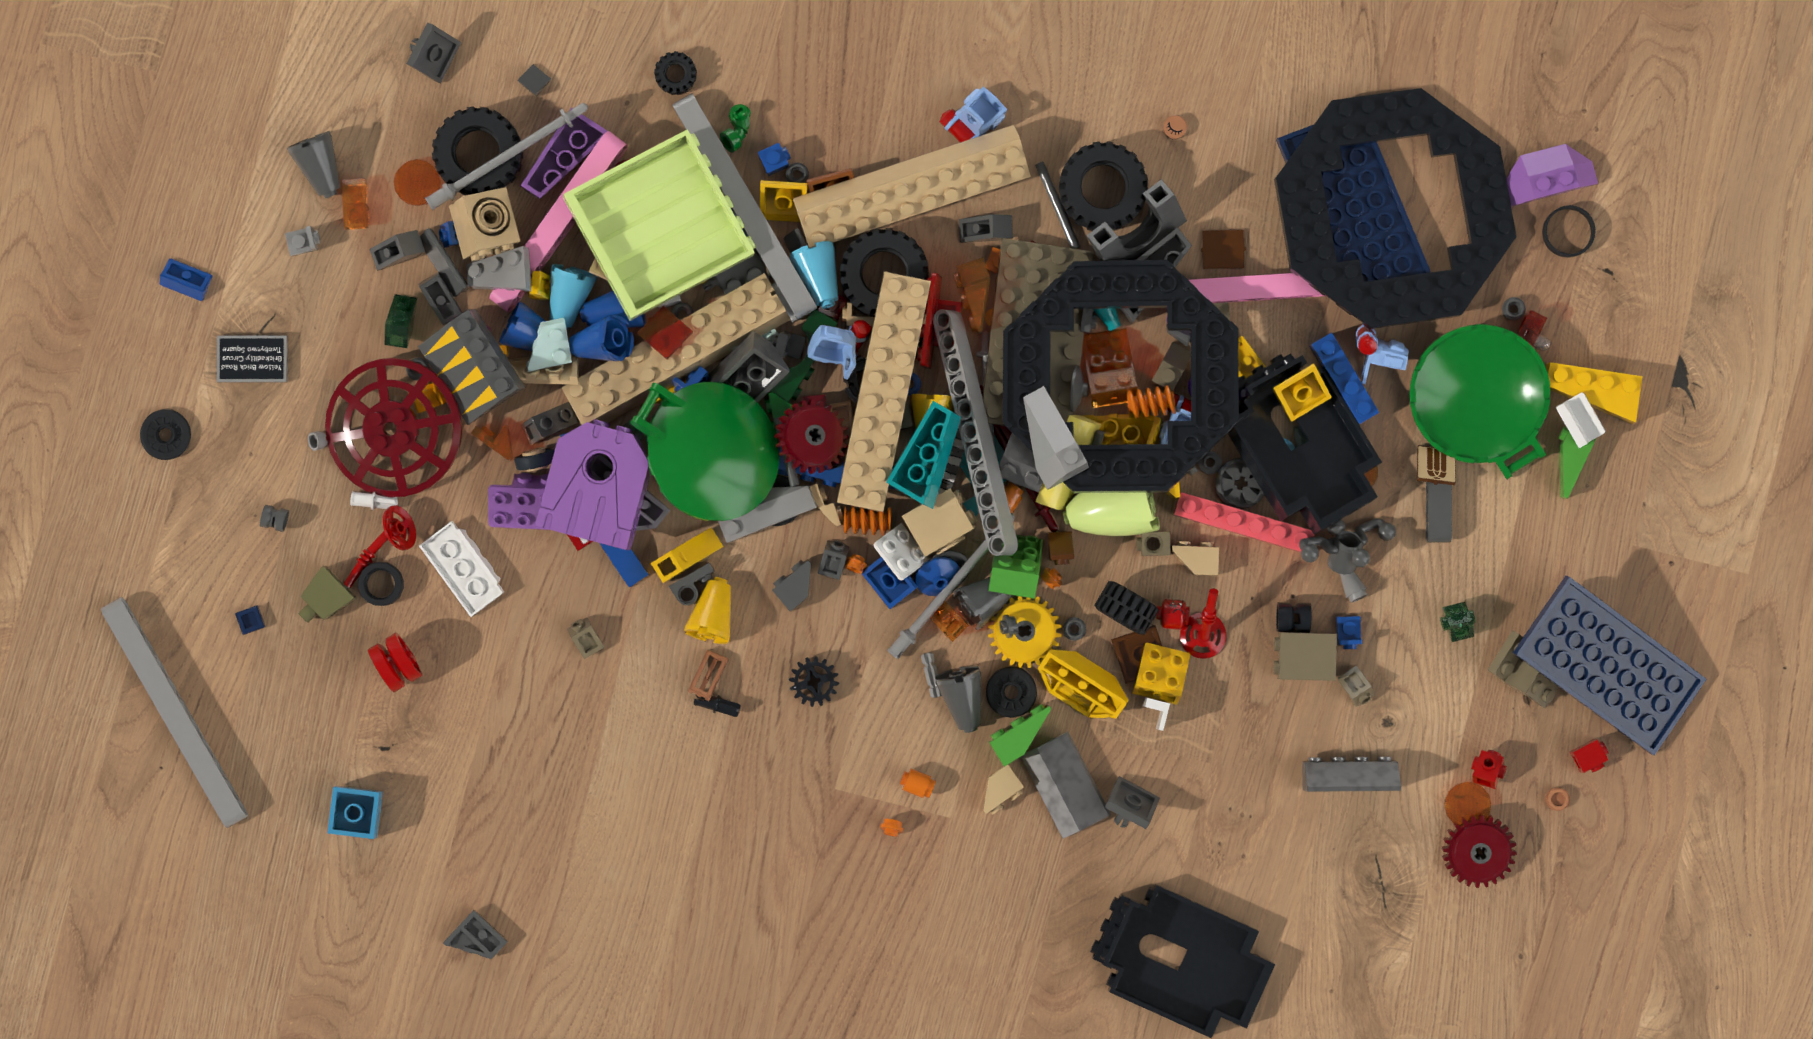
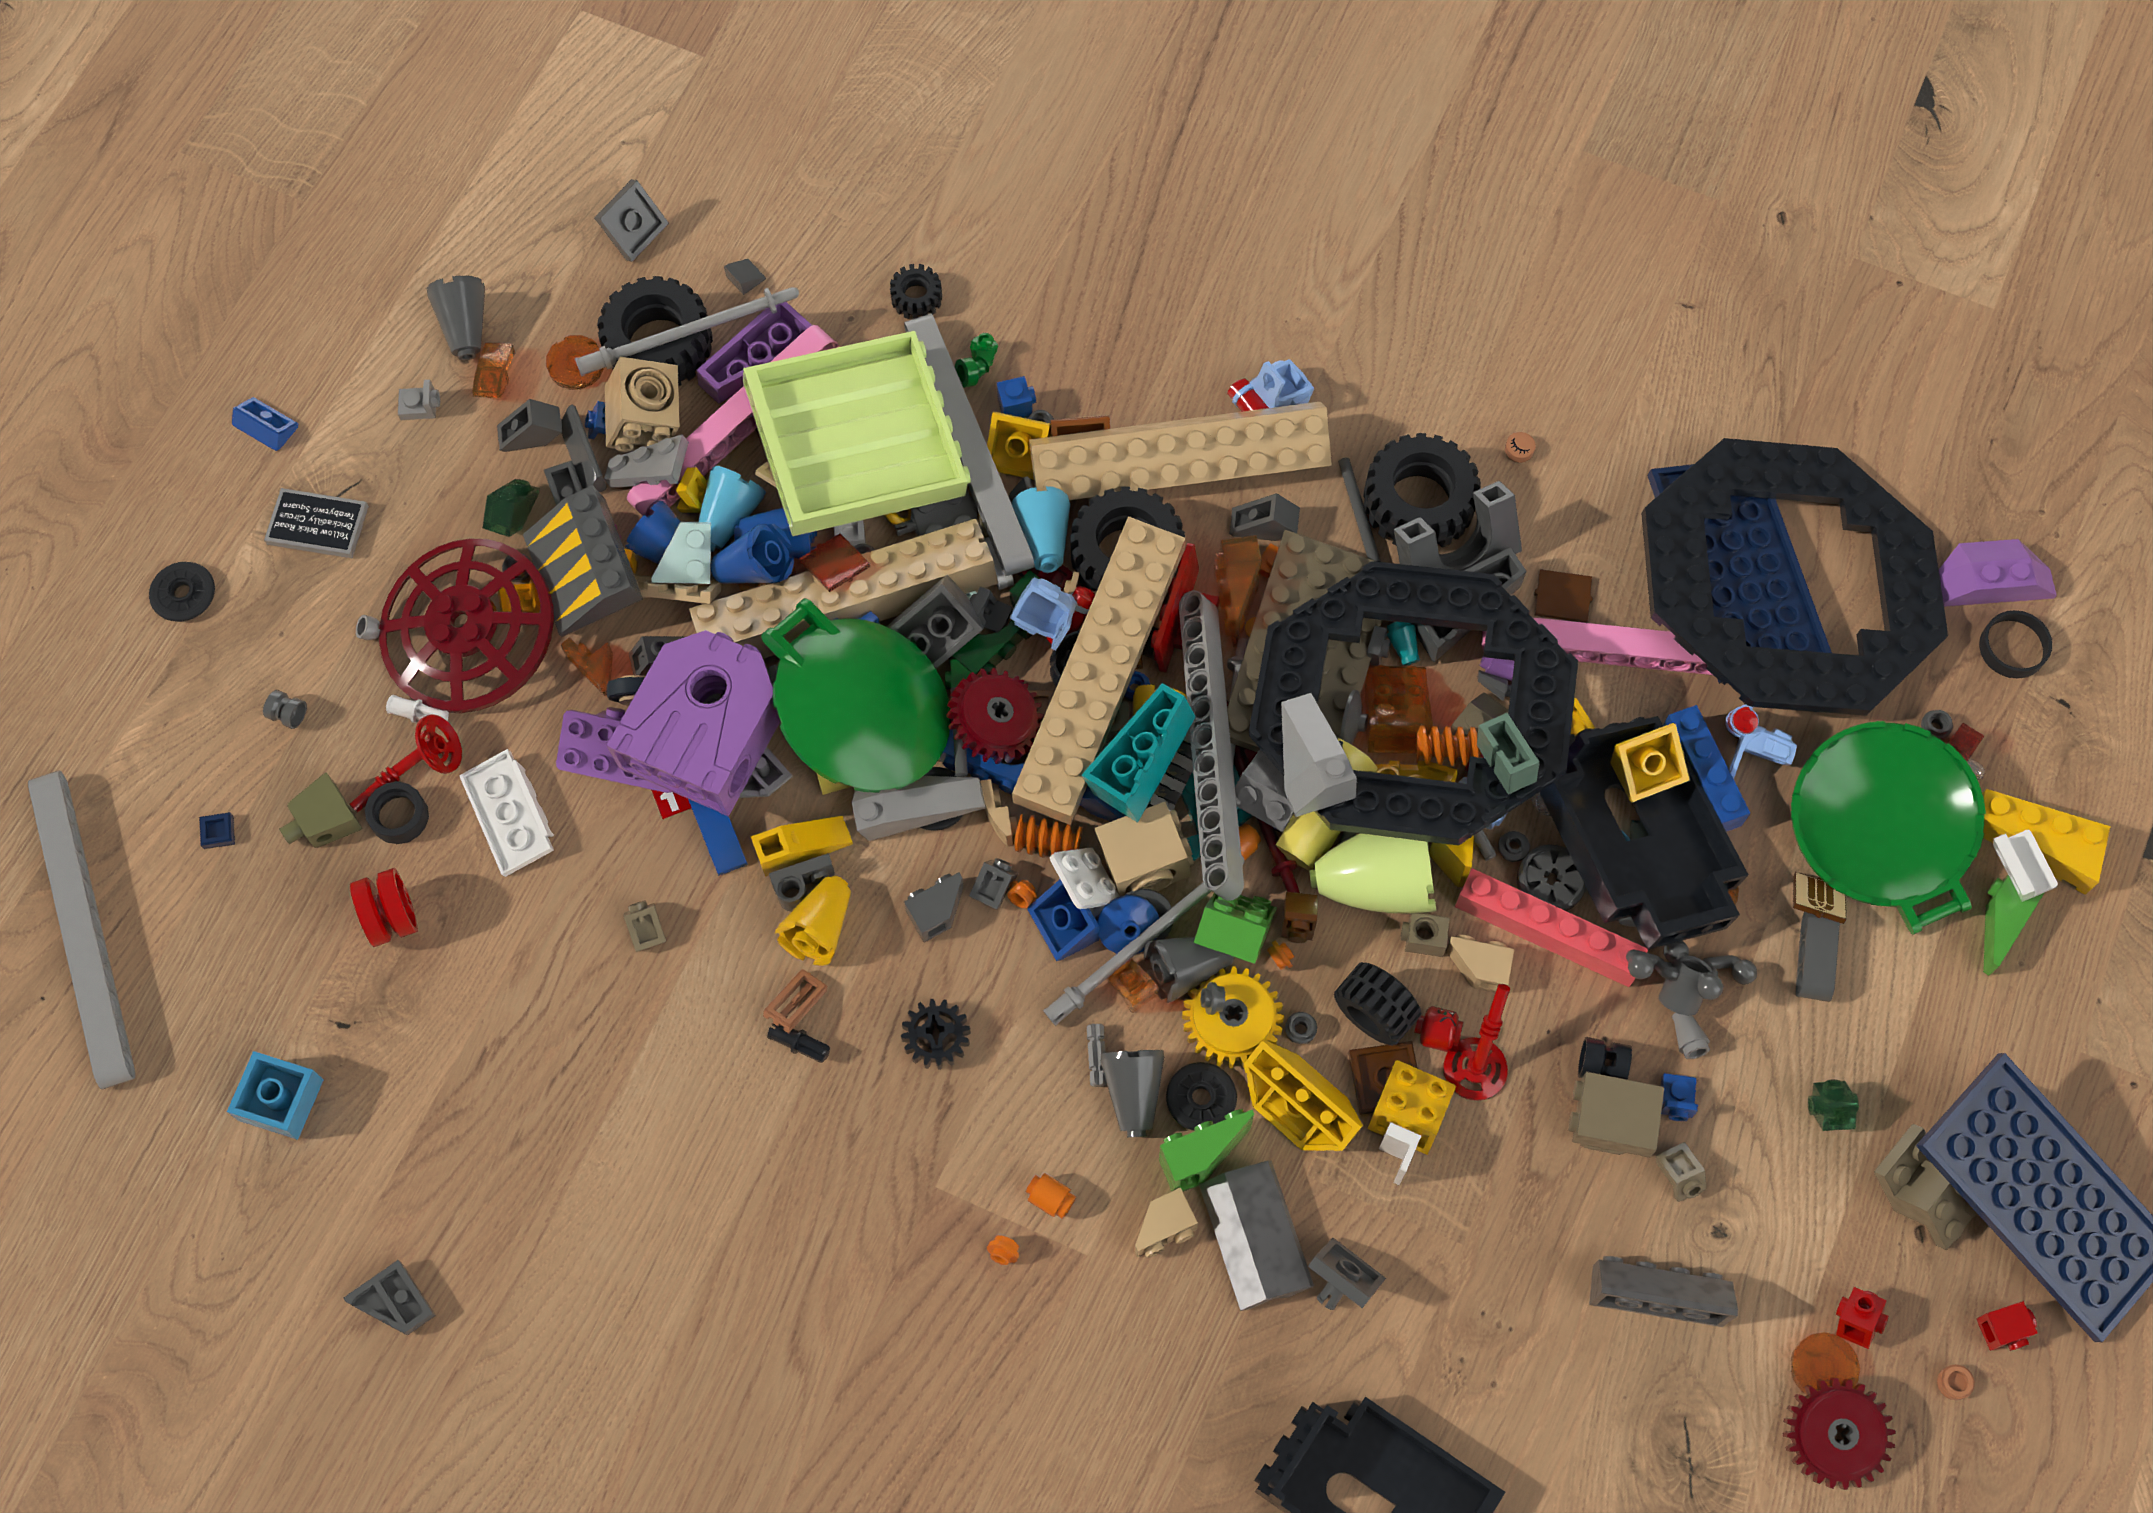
camera: 10 degrees right, 20 degrees down
(1194, 421) = (1509, 752): none -> sand green piece

